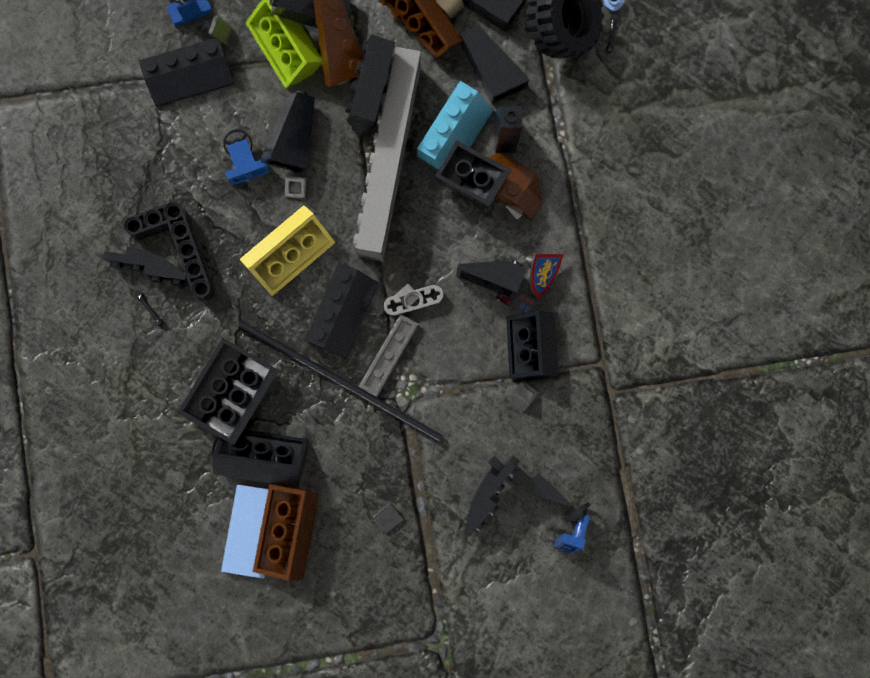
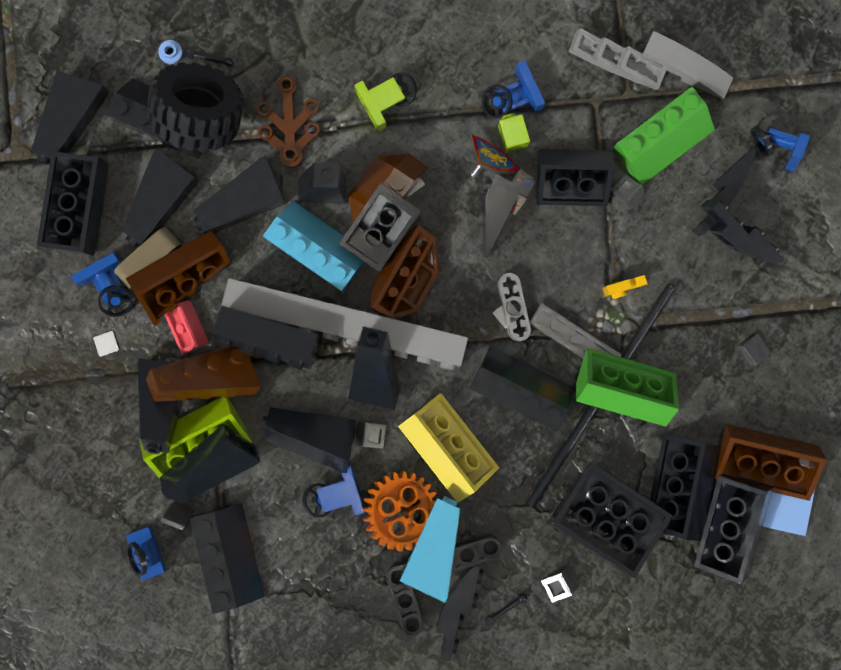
camera: 85 degrees left, 5 degrees up
(171, 354) = (559, 585): none -> flat silver slope
(194, 237) = (433, 554): none -> medium azure slope
(225, 501) = (733, 527): none -> black slope
(247, 202) = (392, 491): none -> orange gear
(264, 51) = (209, 464): none -> black slope
(347, 401) = (627, 387): none -> bright green slope
(349, 177) = (374, 370): none -> black slope
(382, 26) = (186, 327): none -> coral slope
(433, 204) = (406, 275): none -> reddish brown wedge
(435, 391) = (619, 289): none -> yellow plate
(559, 101) = (289, 125): none -> reddish brown plant
(567, 290) = (513, 132): none -> lime brick
(575, 425) = (665, 136): none -> bright green slope
(589, 177) = (385, 96): none -> lime piece
(601, 289) = (514, 95): none -> blue piece
(641, 380) = (616, 59): none -> light grey slope
(641, 442) = (688, 64): none -> light grey slope

